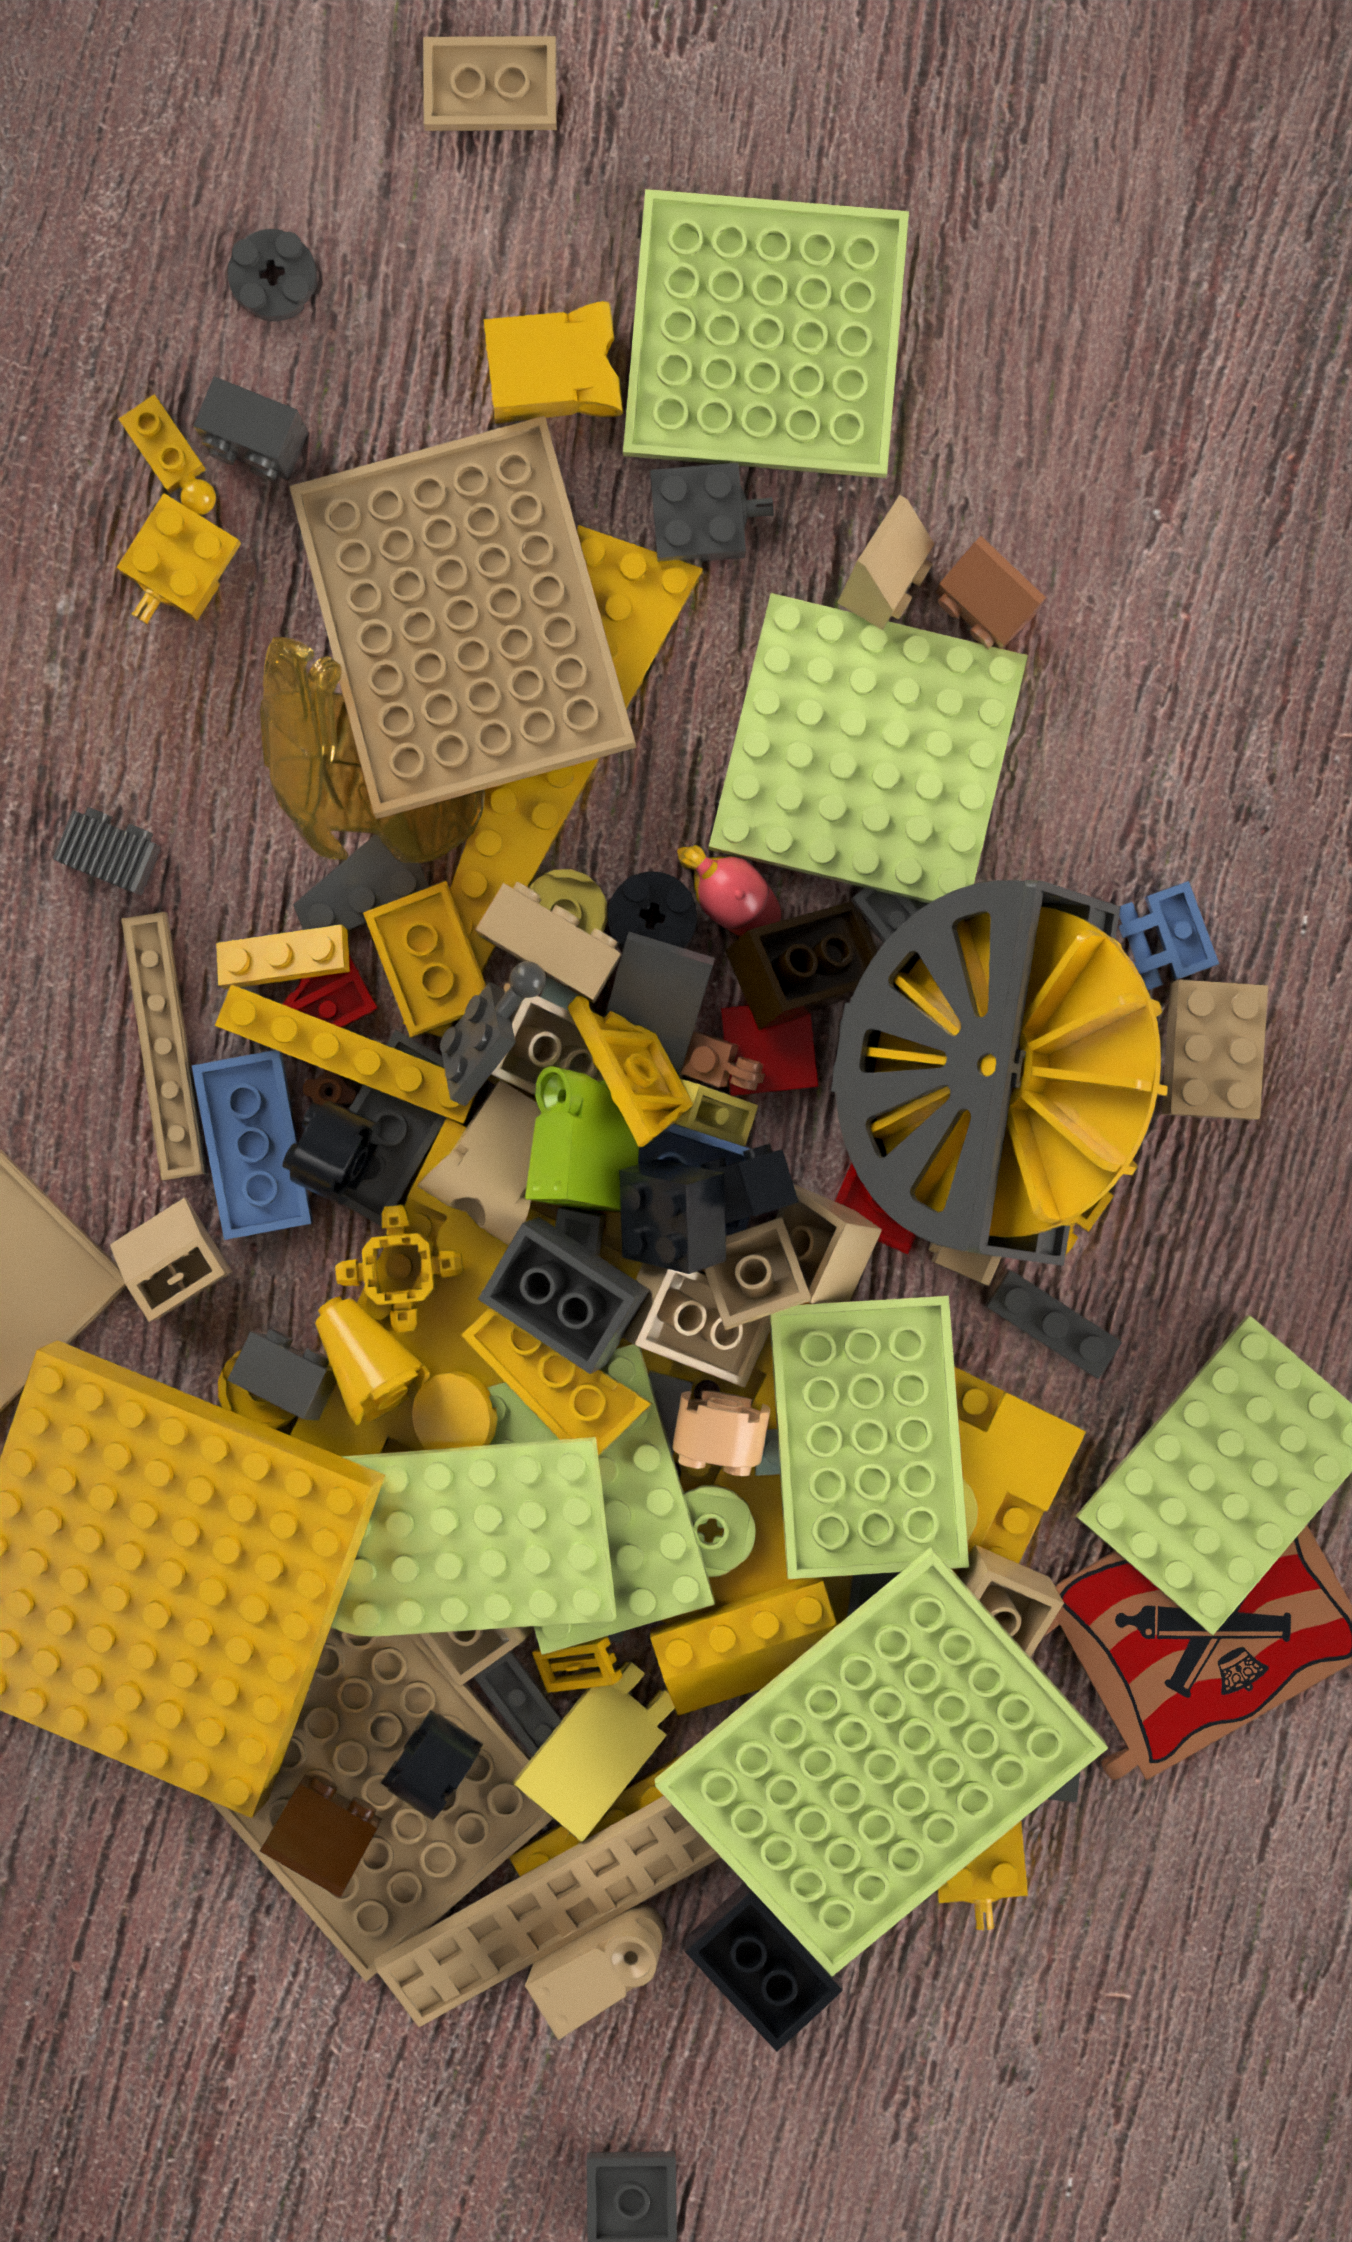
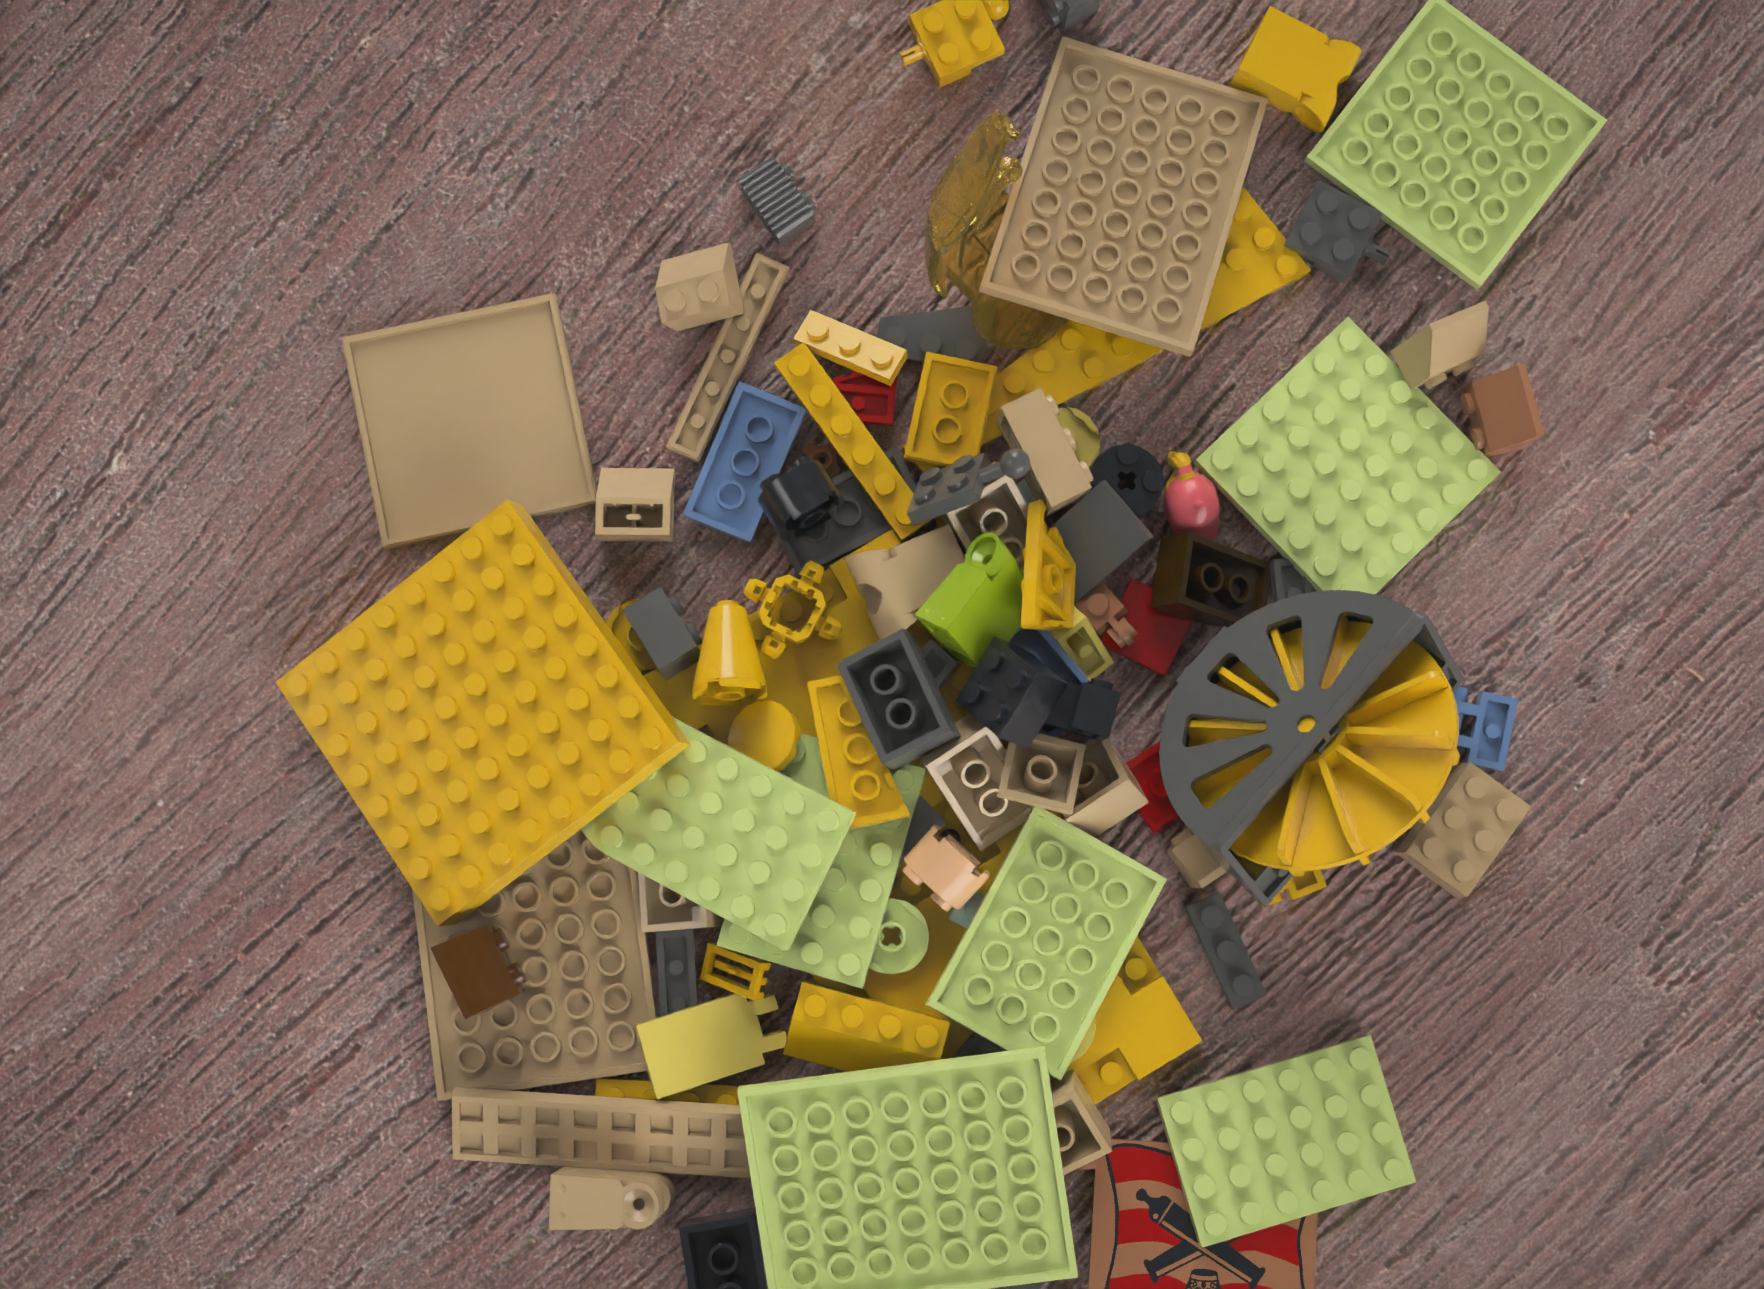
camera: 30 degrees right, 5 degrees down
(86, 996) = (698, 288): none -> tan slope
(432, 1764) = (587, 972): black brick -> none

